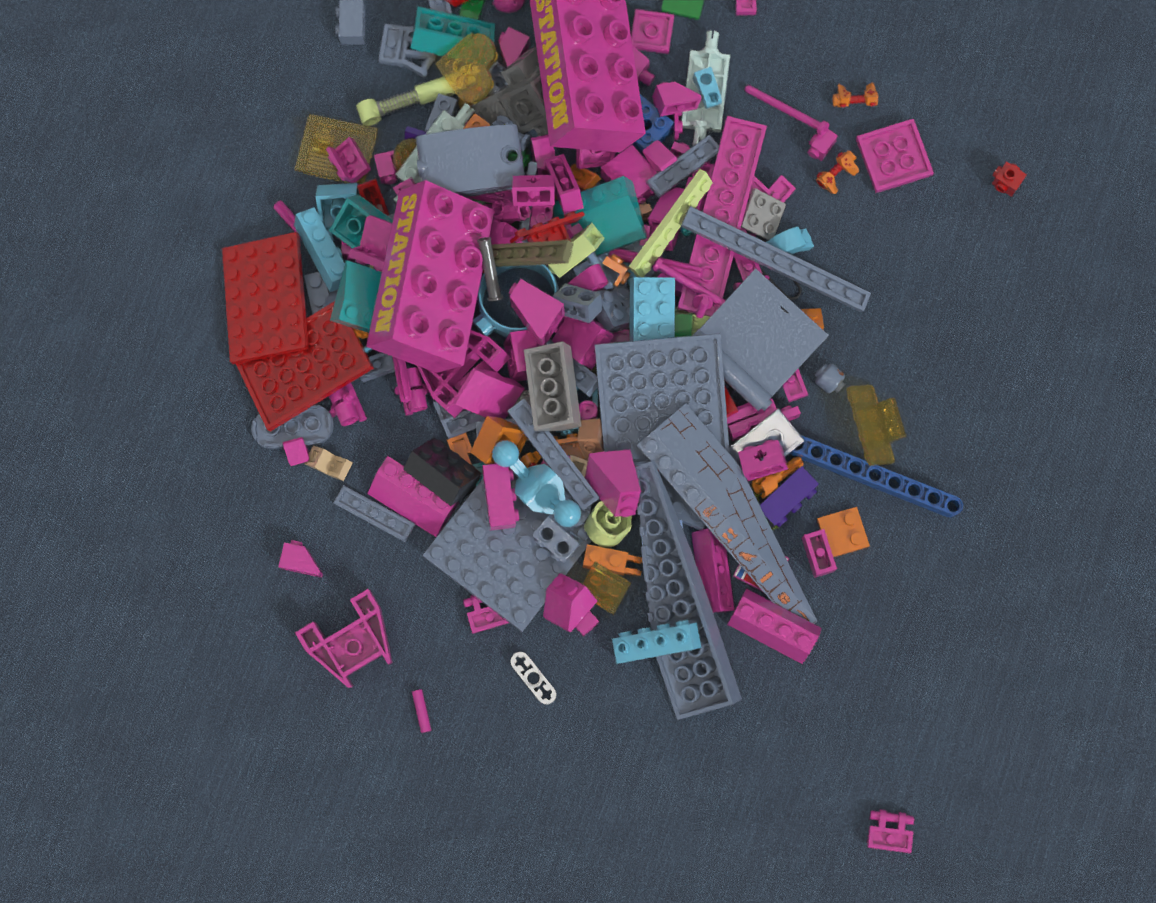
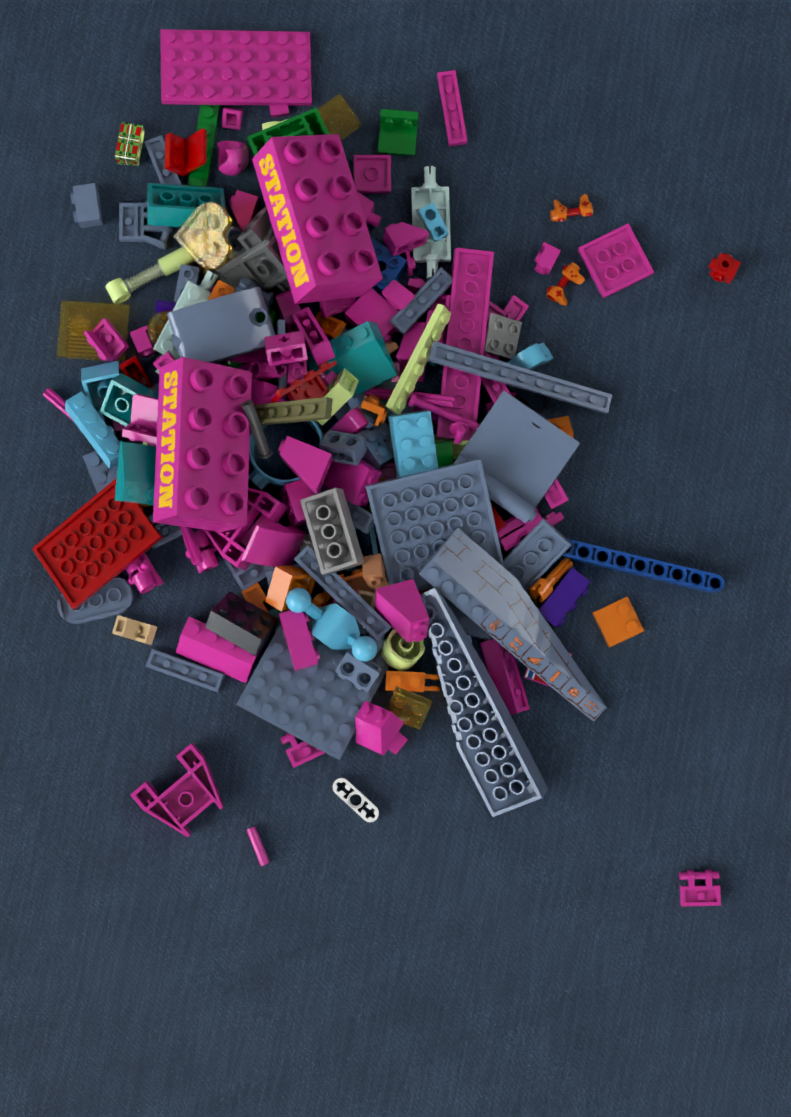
camera: 15 degrees left, 5 degrees up
(265, 298) = (49, 484): red plate -> none
(296, 451) = (103, 623): dark pink slope -> none
(298, 559) = (122, 724): dark pink slope -> none
(588, 410) = (368, 546): dark pink tile -> none
(656, 643) = (463, 752): medium azure brick -> none
(773, 461) = (545, 570): dark pink brick -> none
(774, 626) = (569, 719): dark pink slope -> none
(819, 553) = (599, 645): dark pink brick -> none
(821, 127) = (543, 244): dark pink bar -> none
(830, 378) = (586, 480): sand blue head -> none
(876, 423) = (634, 516): clear yellow bracket -> none

